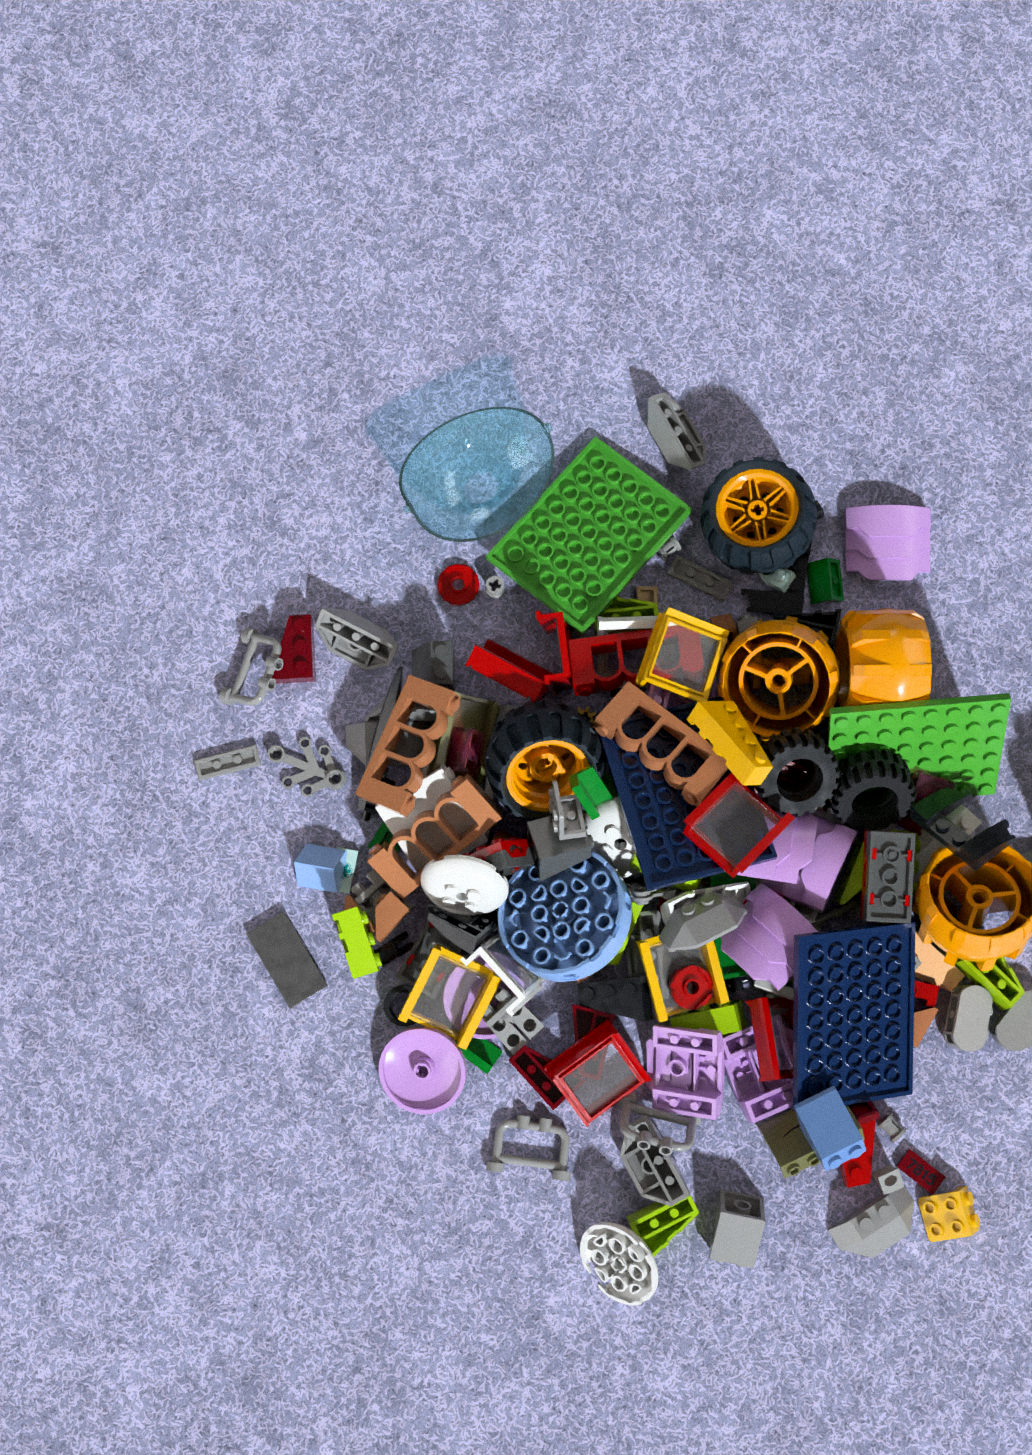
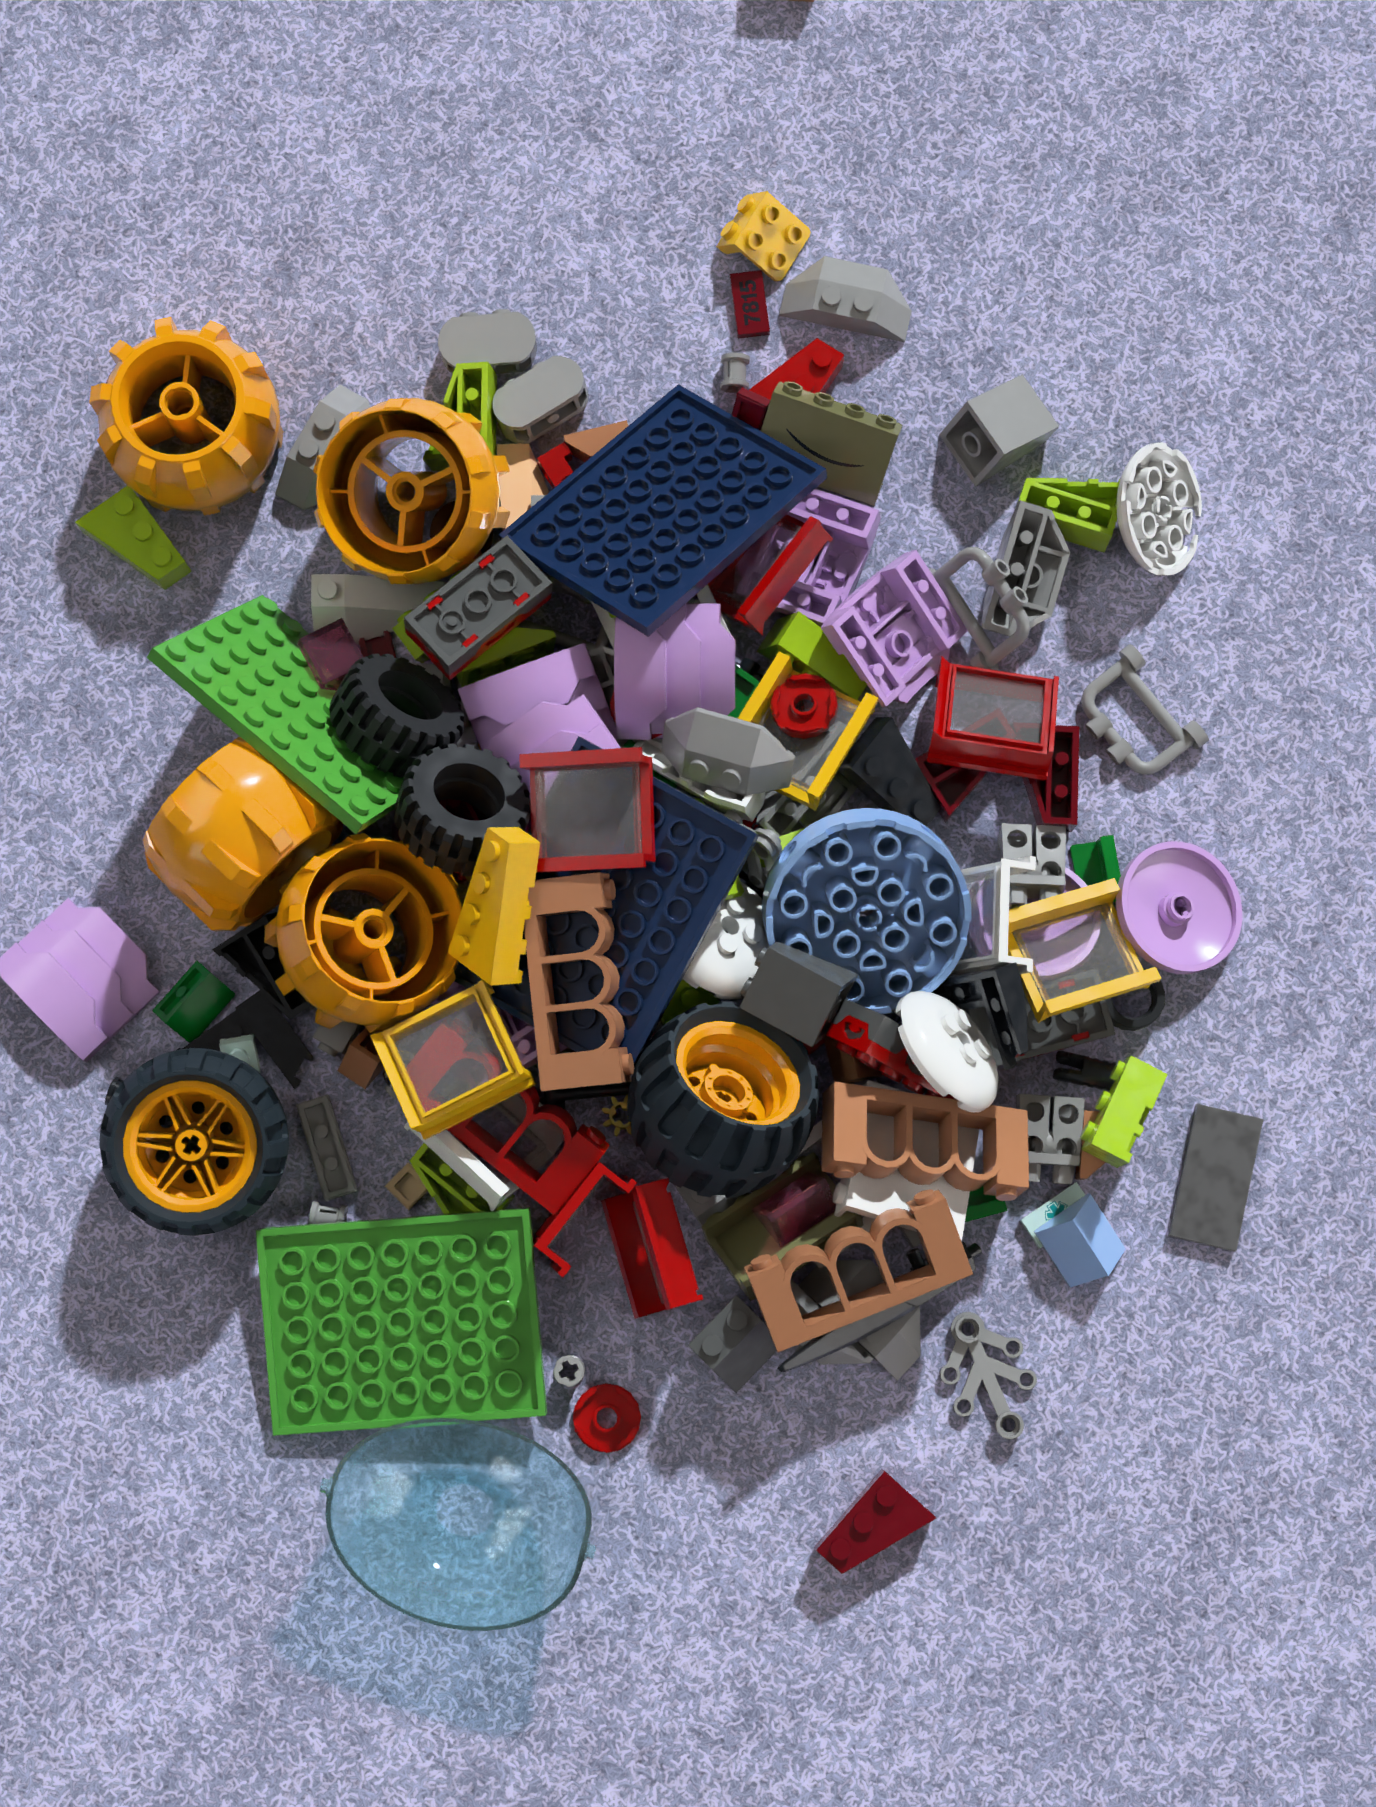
camera: 140 degrees left, 0 degrees up
(227, 762) = (1074, 1472): light grey tile -> none
(252, 638) = (916, 1532): light grey bar -> none
(356, 638) = (787, 1469): light grey wedge -> none
(388, 914) = (1057, 1108): nougat slope -> none
(566, 813) = (760, 1007): light grey bracket -> none
(589, 790) = (708, 1012): green panel -> none
(675, 433) = (179, 1342): light grey wedge -> none
(829, 1128) = (810, 418): medium blue slope -> none
(888, 1179) = (793, 326): light grey bracket -> none
(976, 851) = (364, 540): black wedge -> none

